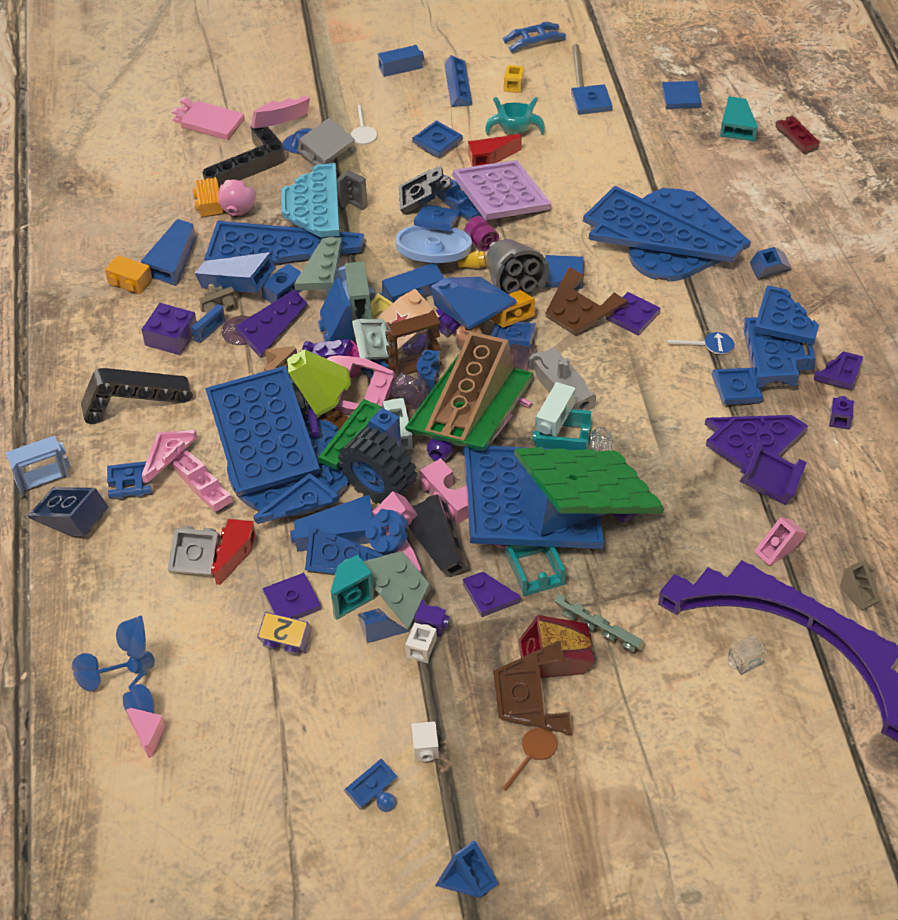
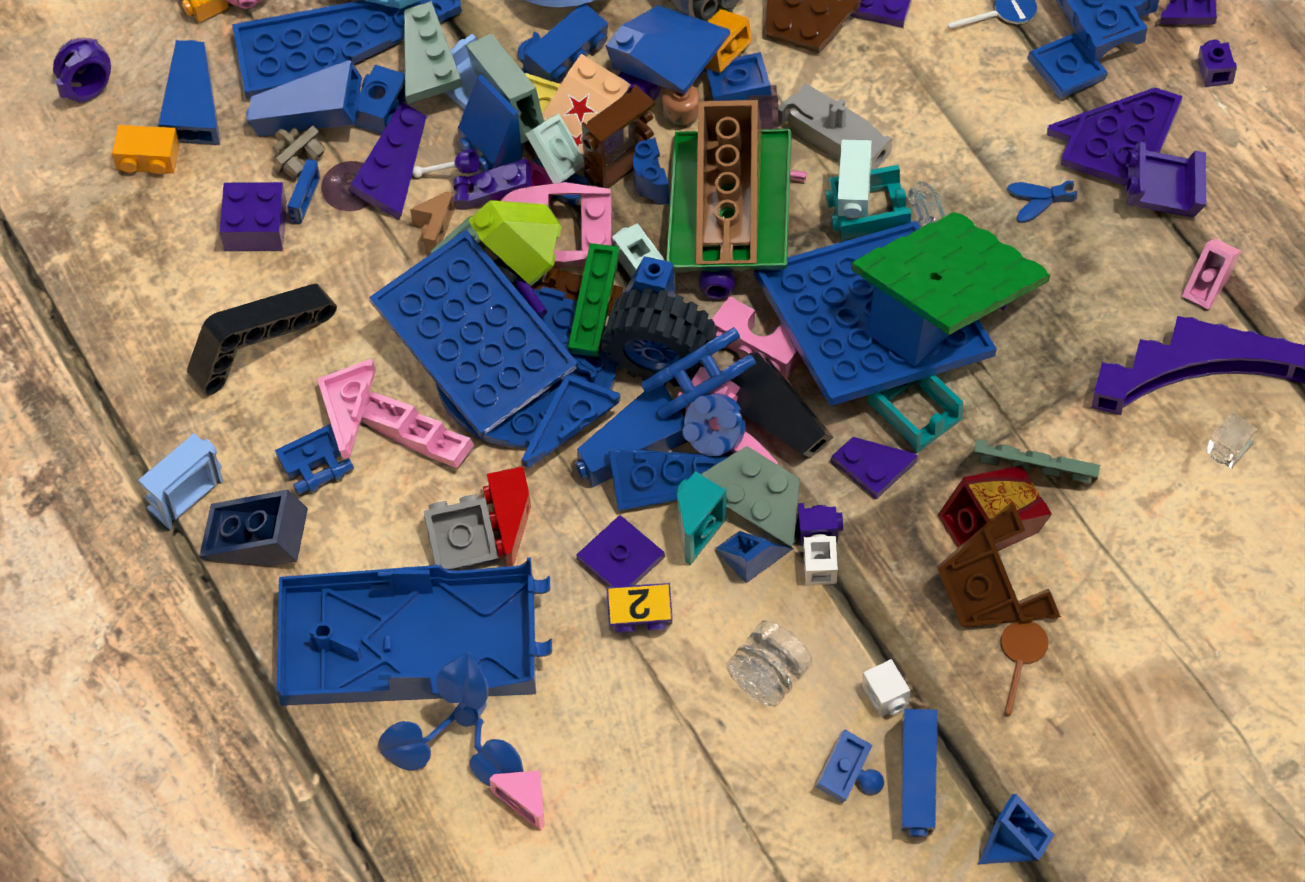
camera: 20 degrees left, 10 degrees up
(97, 589) = (398, 627): none -> blue piece
(112, 214) = (75, 57): none -> dark purple helmet
(314, 332) = (465, 162): none -> dark purple hinge
(347, 698) = (769, 663): none -> clear wheel
(399, 500) = (704, 356): none -> blue piece
(404, 388) = (639, 207): hair -> none
(419, 803) = (918, 772): none -> blue slope
(683, 461) = (1041, 197): none -> blue piece

